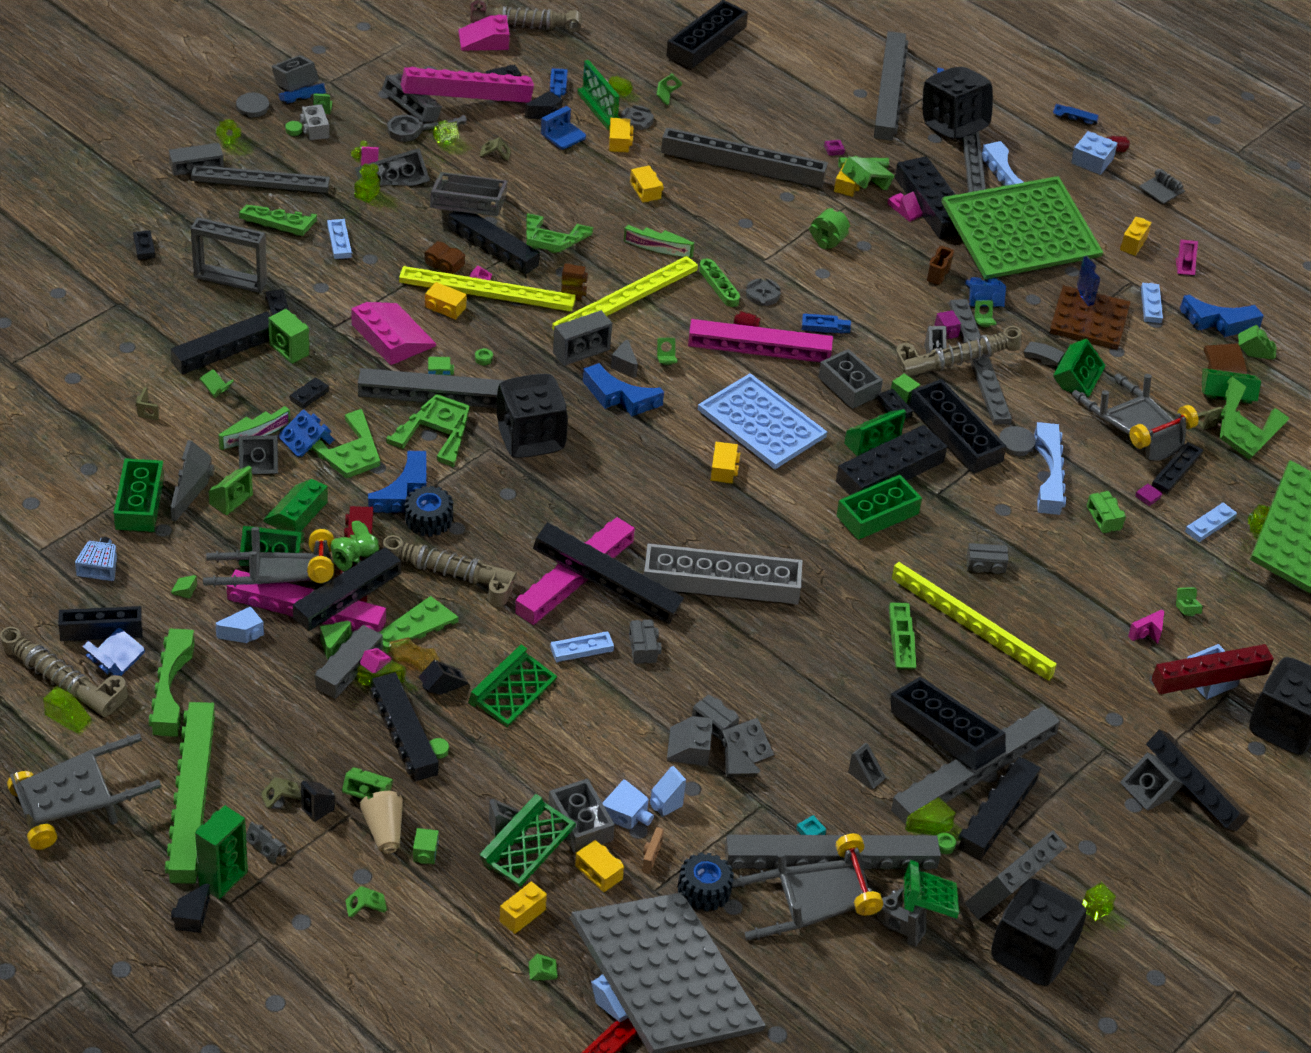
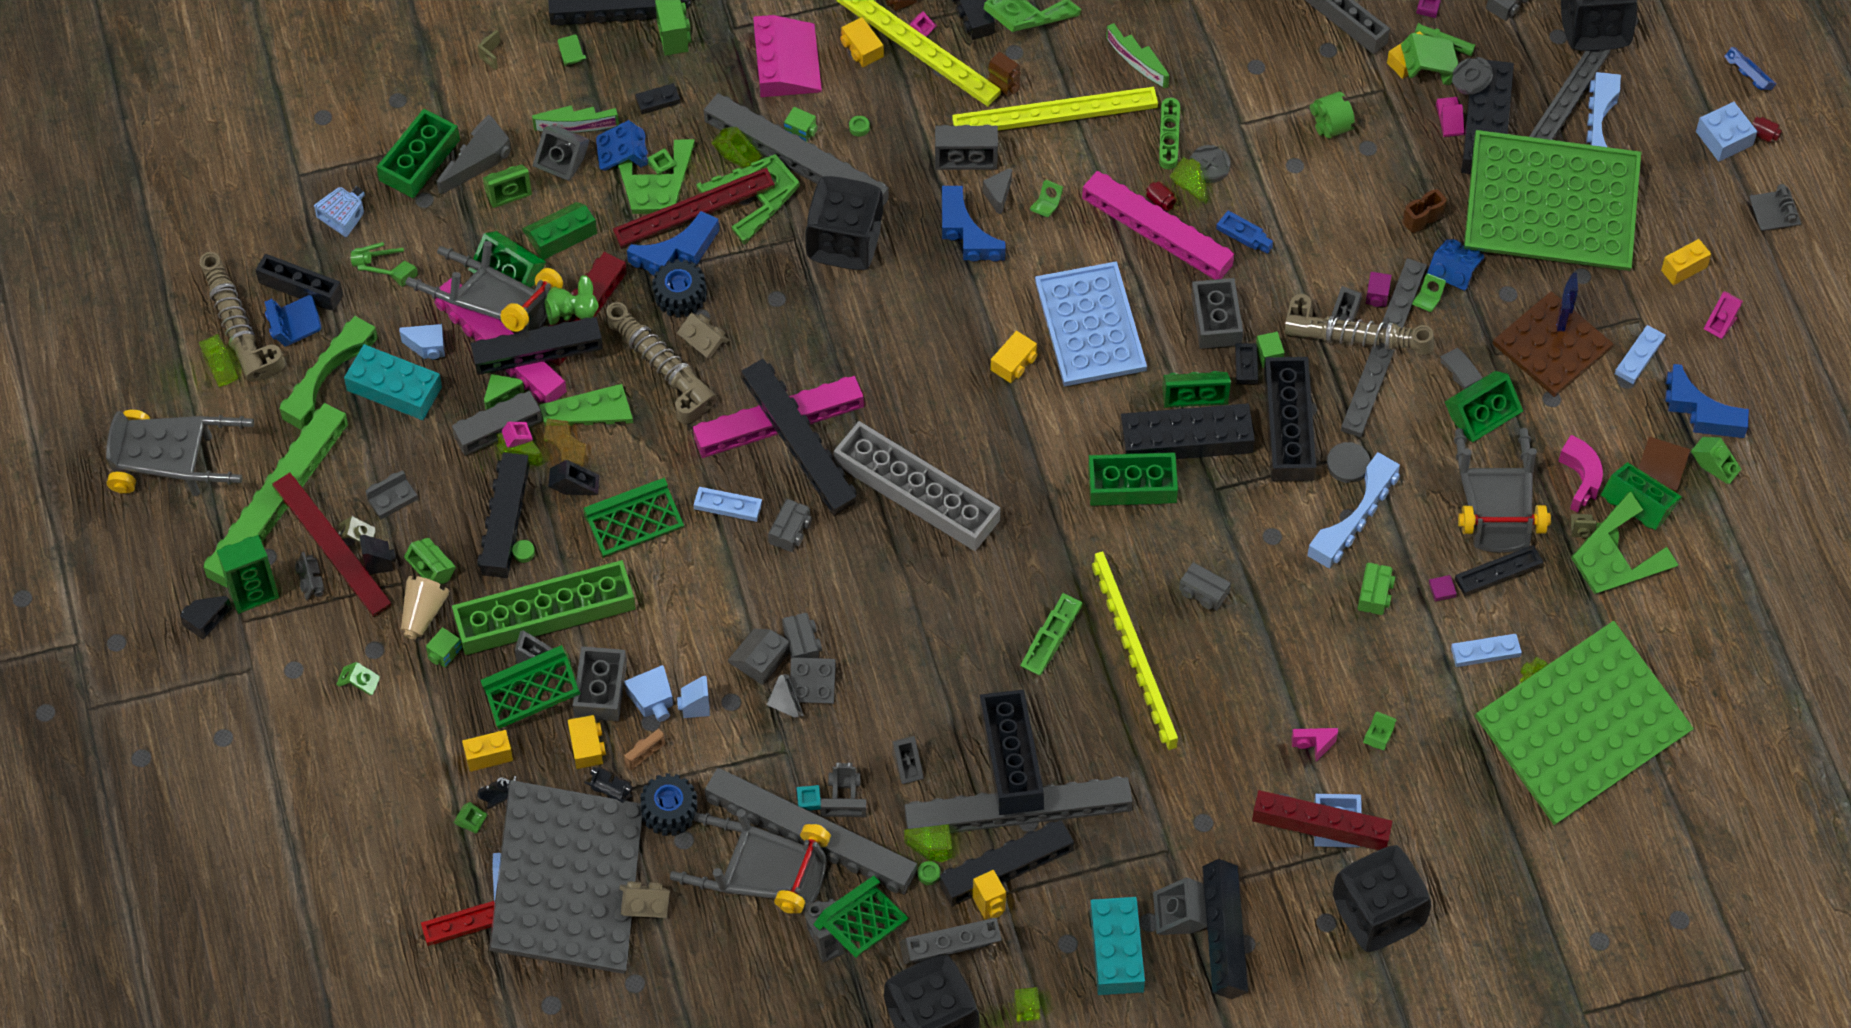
camera: 35 degrees right, 15 degrees up
(142, 586) = (362, 256): none -> bright green plant
(235, 666) = (393, 382): none -> teal brick
(271, 806) = (331, 544): none -> dark red tile
(293, 752) = (390, 495): none -> dark grey bracket
(346, 432) = (661, 161): none -> bright green slope
(396, 454) = (689, 209): none -> dark red tile
(399, 401) = (736, 147): none -> clear neon green slope
(469, 537) = (702, 335): none -> dark tan bracket
(492, 775) = (544, 607): none -> bright green brick
(558, 934) = (496, 792): none -> black hinge
(636, 889) = (600, 782): none -> black hinge
(743, 962) = (644, 900): none -> dark tan bracket
(762, 303) = (1190, 178): none -> clear neon green slope
(832, 800) = (843, 776): none -> dark grey tile
(908, 170) = (1472, 75): none -> dark grey tile
(1010, 833) = (989, 895): none -> yellow brick
(1129, 829) = (1117, 946): none -> teal brick
(1179, 380) = (1588, 465): none -> dark pink arch

